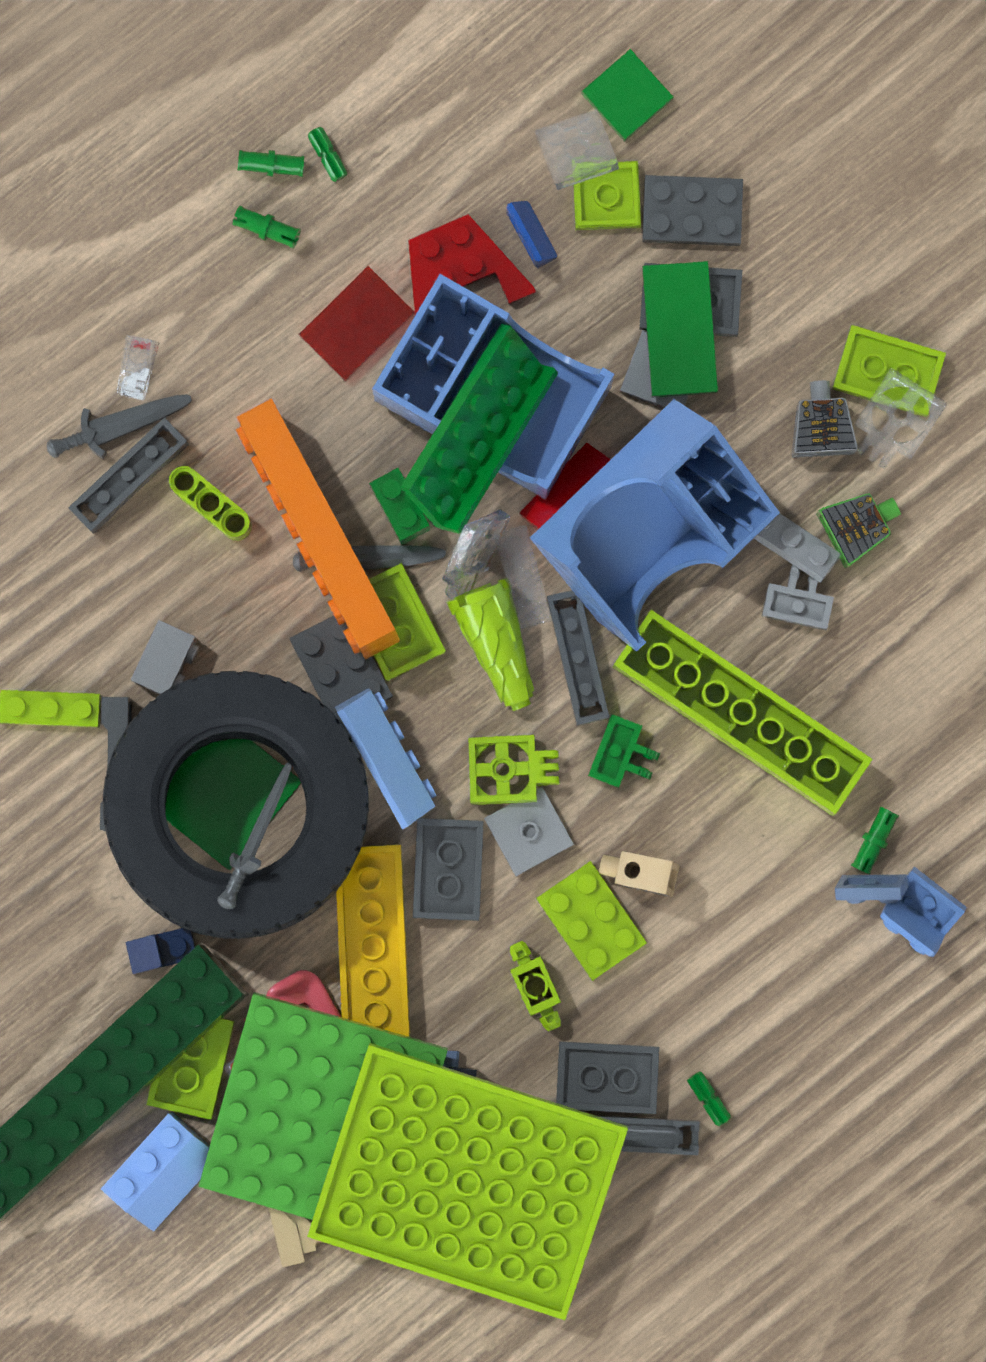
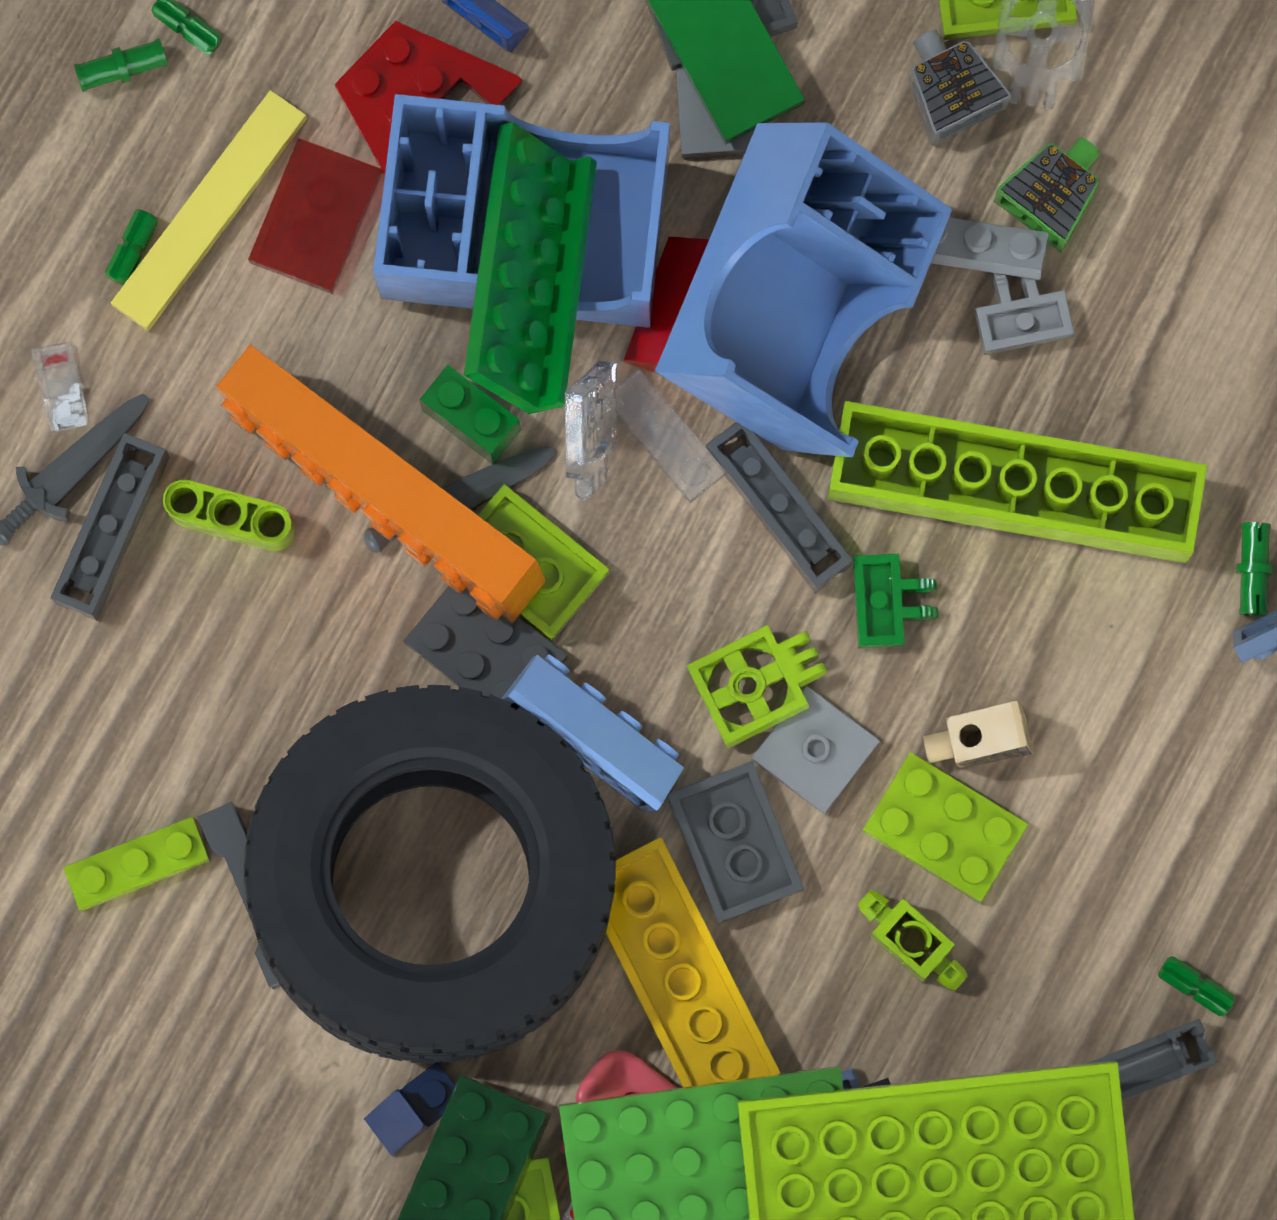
camera: 20 degrees left, 5 degrees down
(165, 658) = (256, 733): light grey brick -> none
(222, 795) = (414, 874): green sticker -> none
(229, 286) = (135, 239): none -> green piece
(246, 862) = (478, 932): dark grey sword -> none
(266, 227) = (149, 145): green pin -> none
(287, 289) = (209, 210): none -> light yellow tile
(493, 632) = (661, 520): lime cone -> none
(608, 1077) = (1057, 1014): dark grey plate -> none

